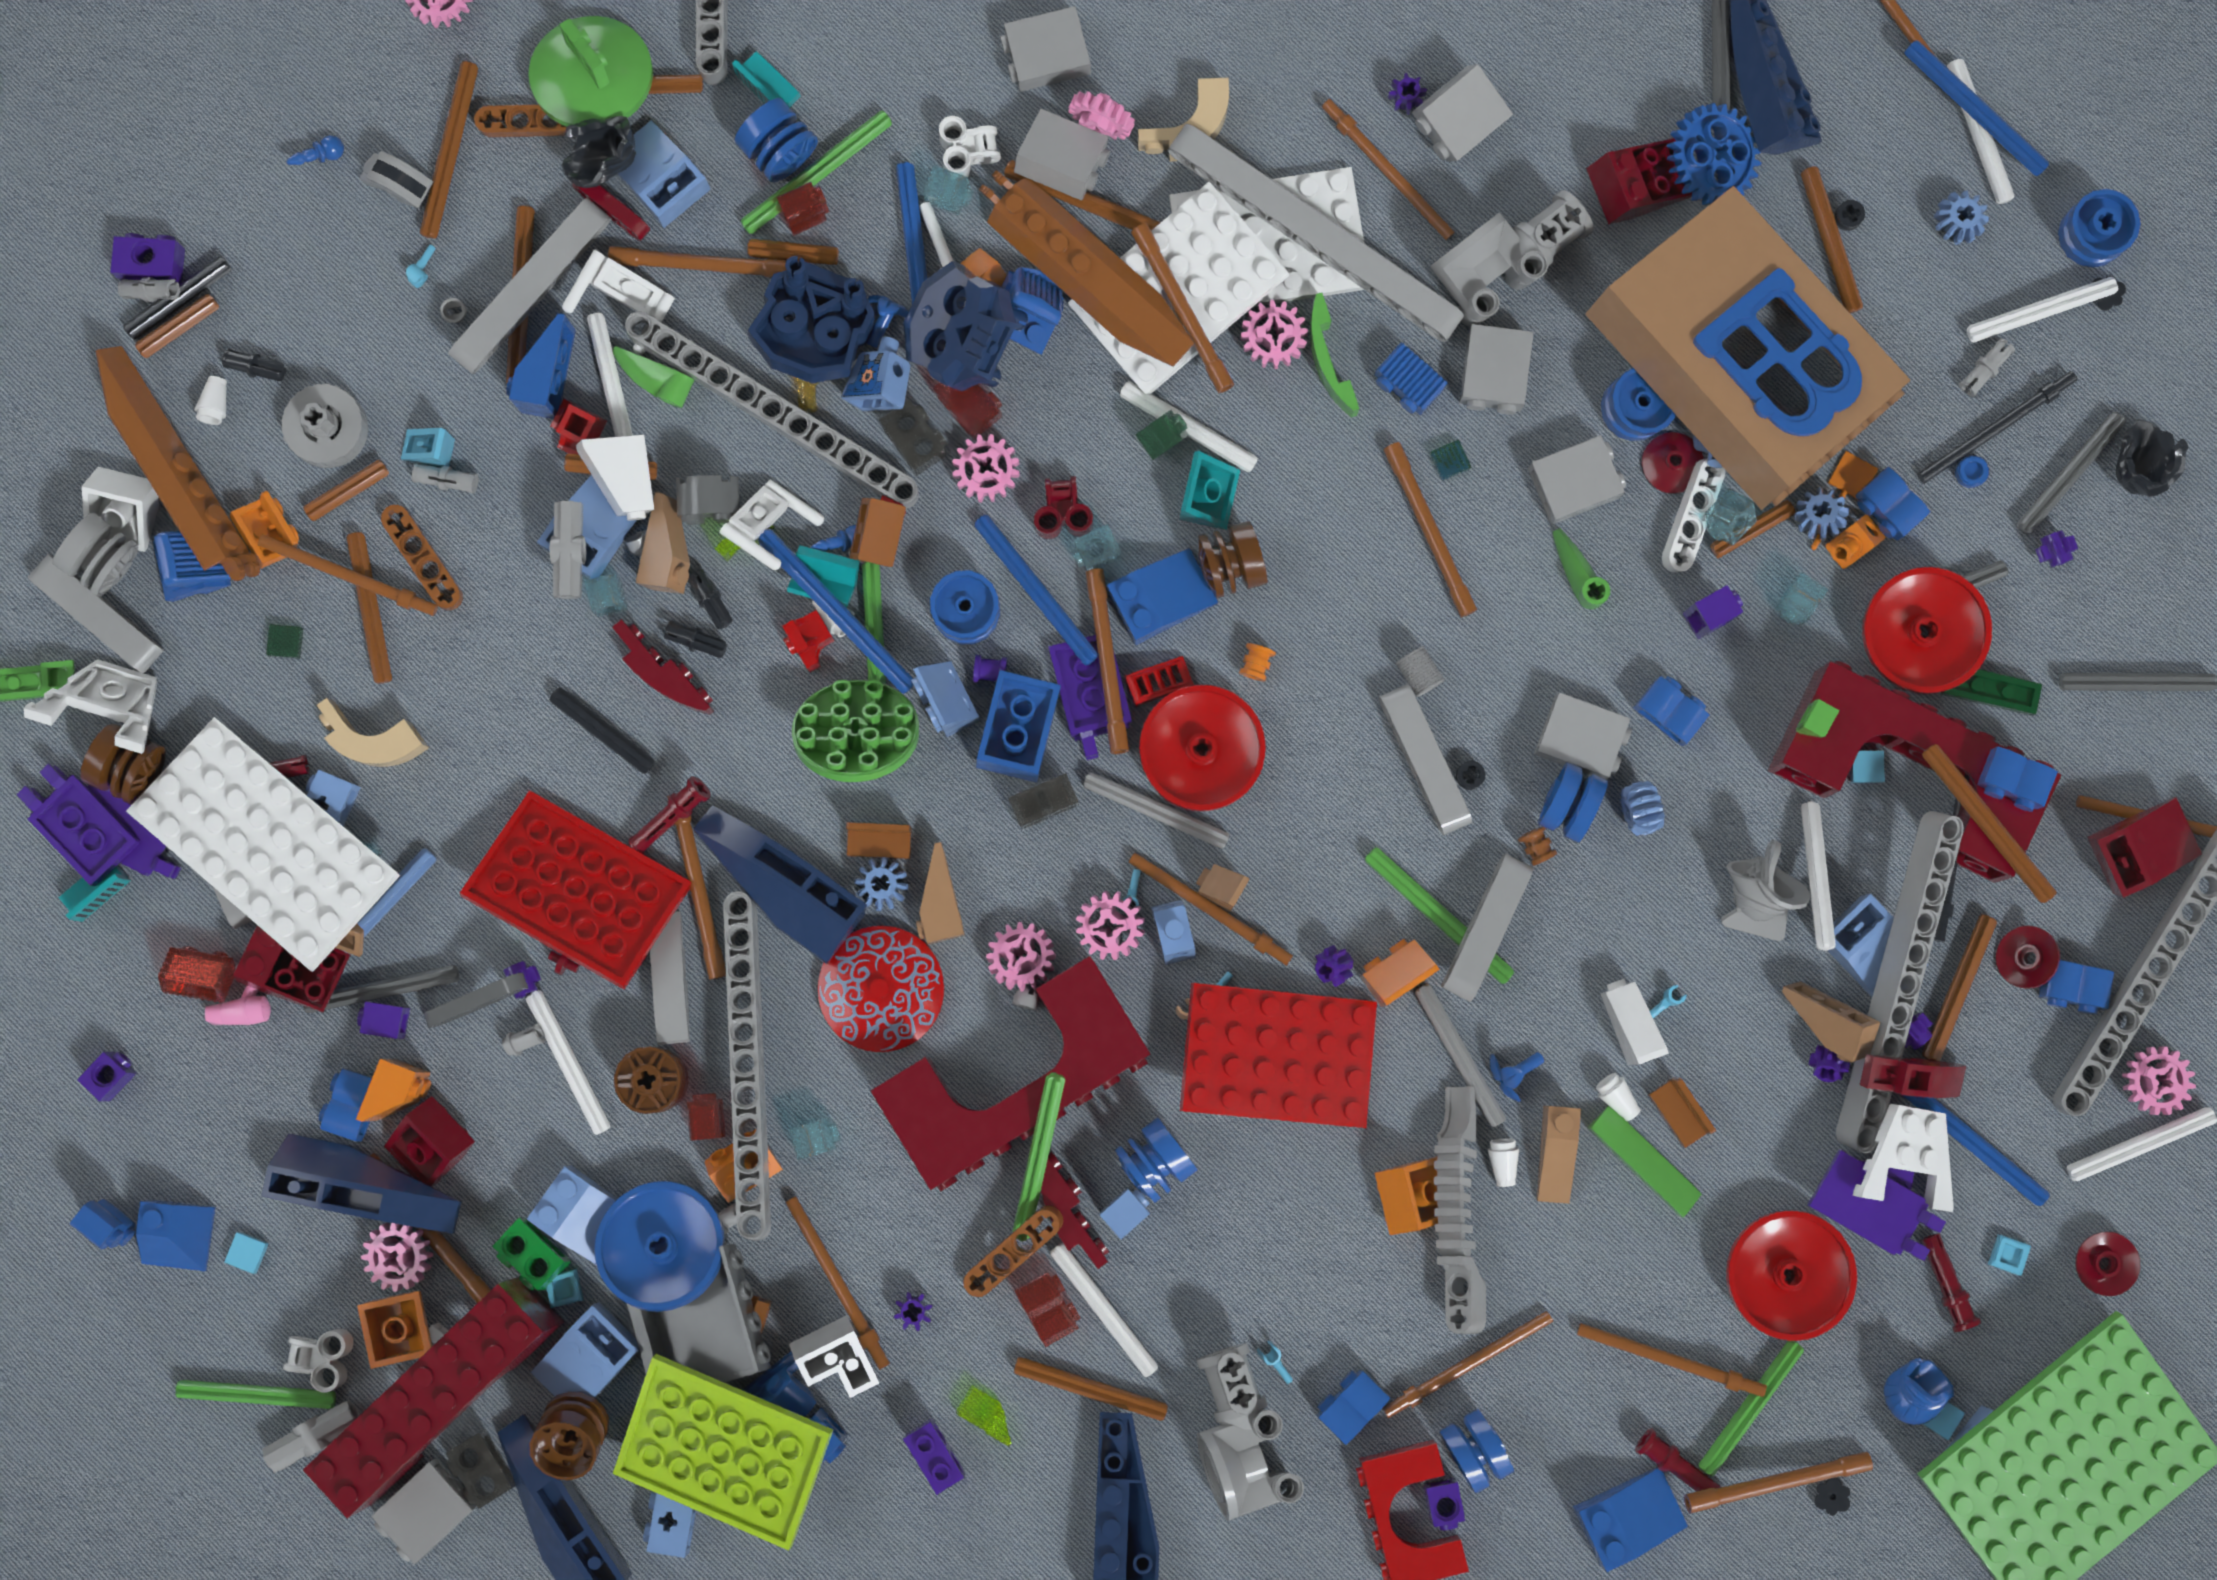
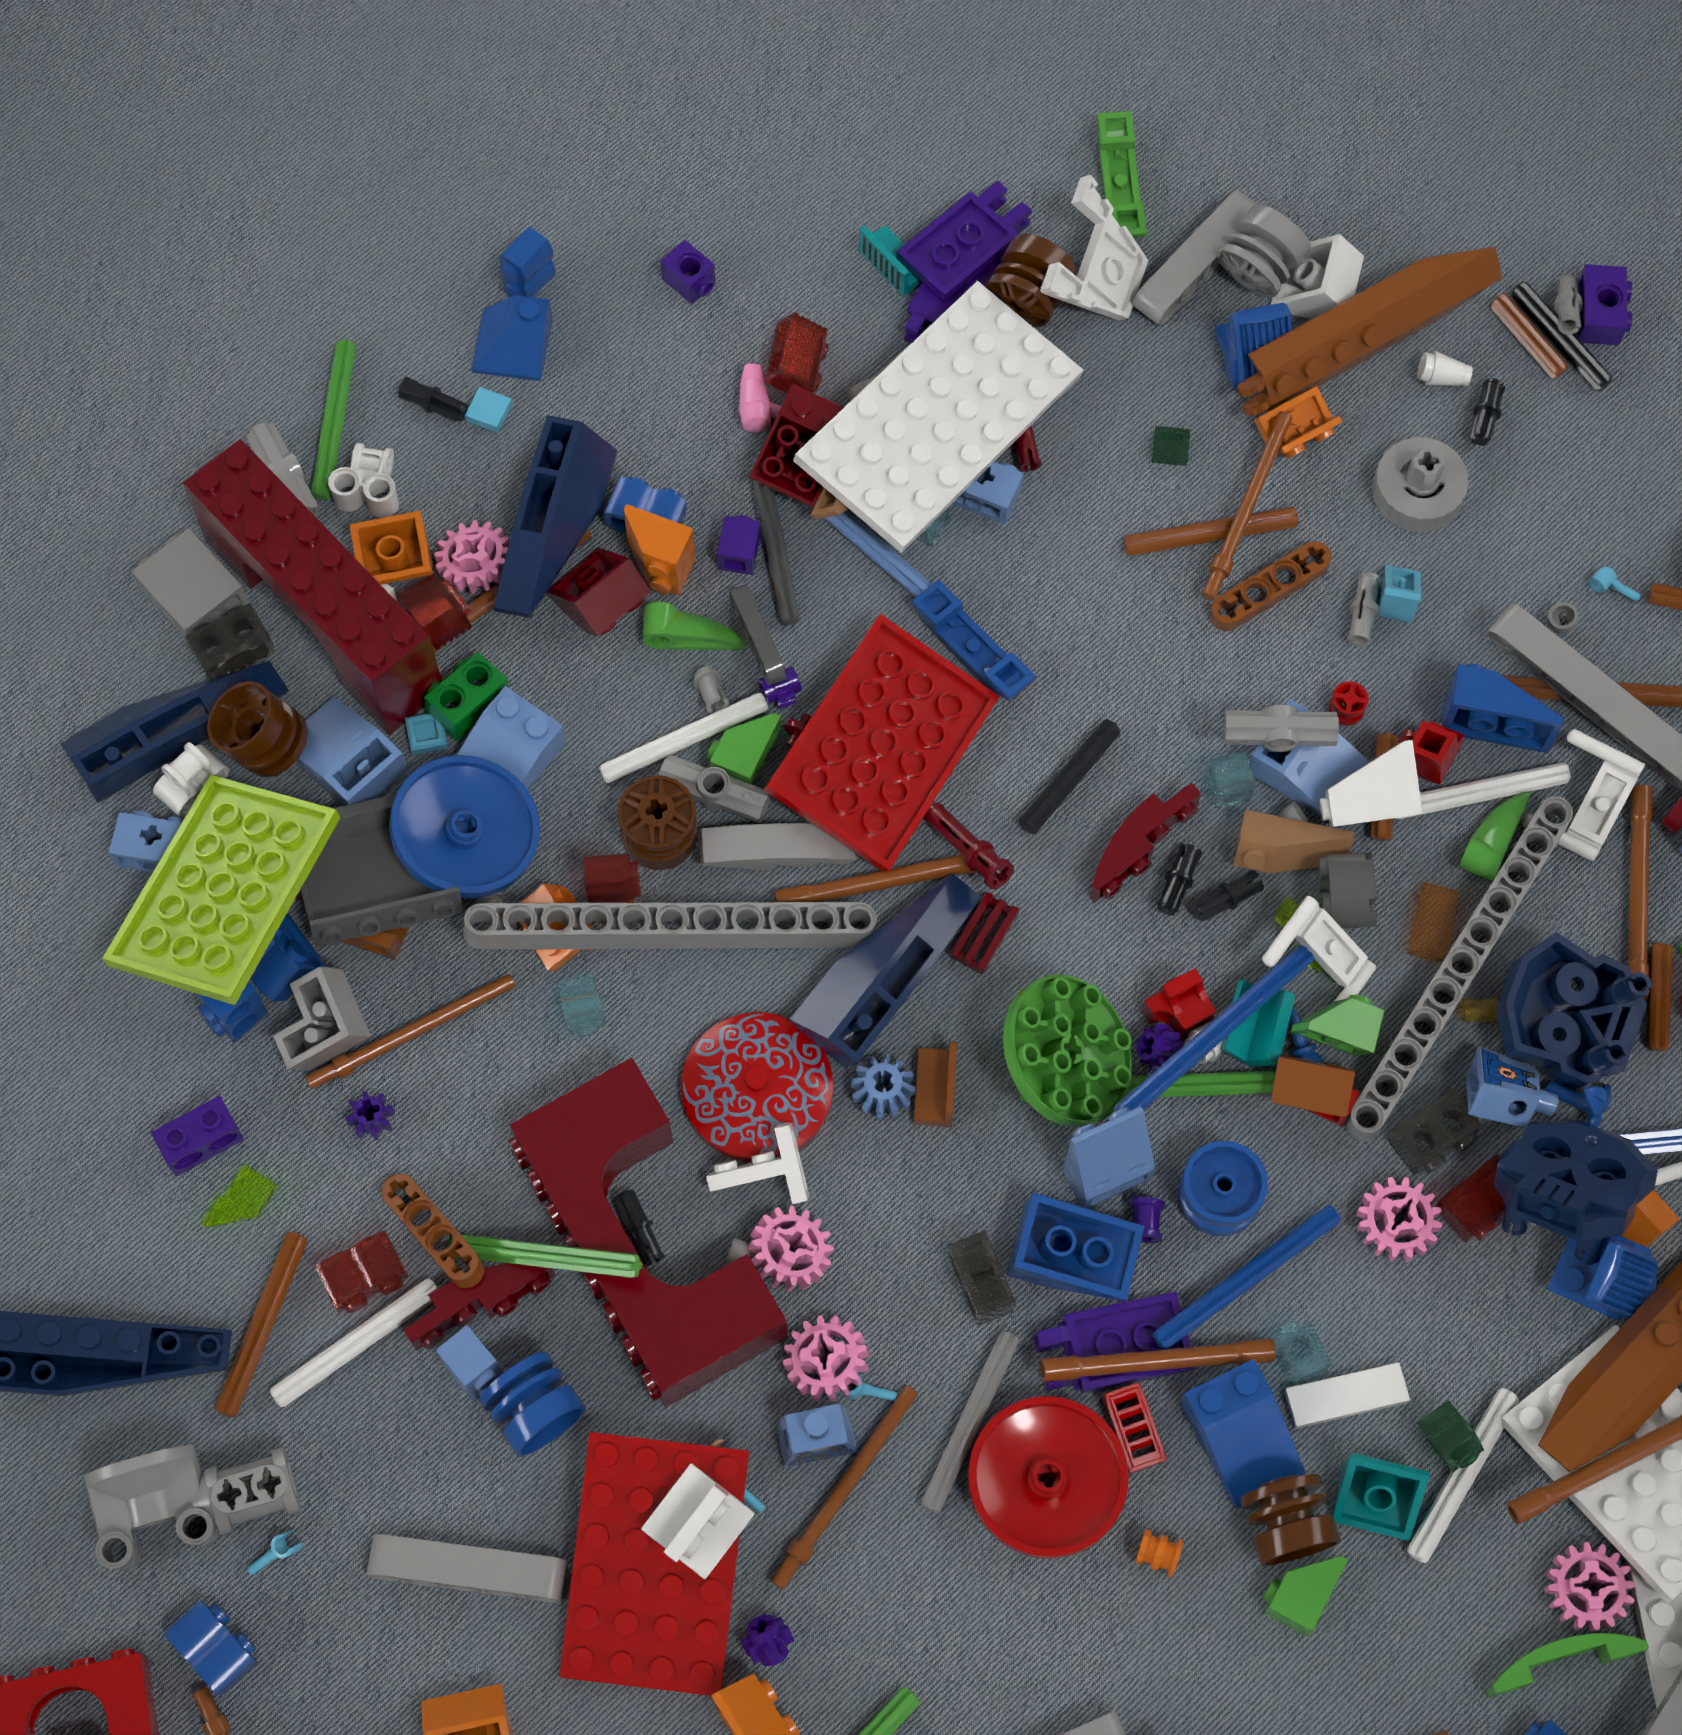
camera: 90 degrees right, 15 degrees down
(236, 1304) = (432, 399): none -> black axle
(346, 490) = (1346, 507): dark orange axle -> none
(383, 750) = (1048, 550): tan arch -> none
(454, 1285) = (437, 609): none -> clear red brick
(464, 1072) = (680, 630): none -> bright green piece
(479, 814) = (970, 643): none -> blue slope
(528, 490) = (1351, 695): none -> red wheel
(582, 1009) = (746, 748): none -> bright green slope
(612, 1492) = (186, 777): none -> white piece
(623, 1013) = (736, 796): none -> light grey piece
(720, 789) = (999, 906): none -> dark red tile
(730, 431) = (1433, 922): none -> clear orange tile
(824, 506) = (1344, 1025): none -> bright green slope
(844, 657) = (1157, 1045): none -> dark purple gear
(939, 904) = (855, 1154): medium nougat slope -> none
(954, 979) = (766, 1166): none -> white bracket
(1004, 1082) = (638, 1226): none -> black axle
(1062, 505) = (1357, 1312): dark red piece -> none
(1128, 514) = (1346, 1395): none -> white tile
(1221, 886) = (869, 1497): medium nougat slope -> none
(1251, 1021) = (697, 1521): none -> white bracket
(1284, 1206) = (466, 1568): none -> light grey beam
(1285, 551) = (1303, 1594): none -> bright green slope

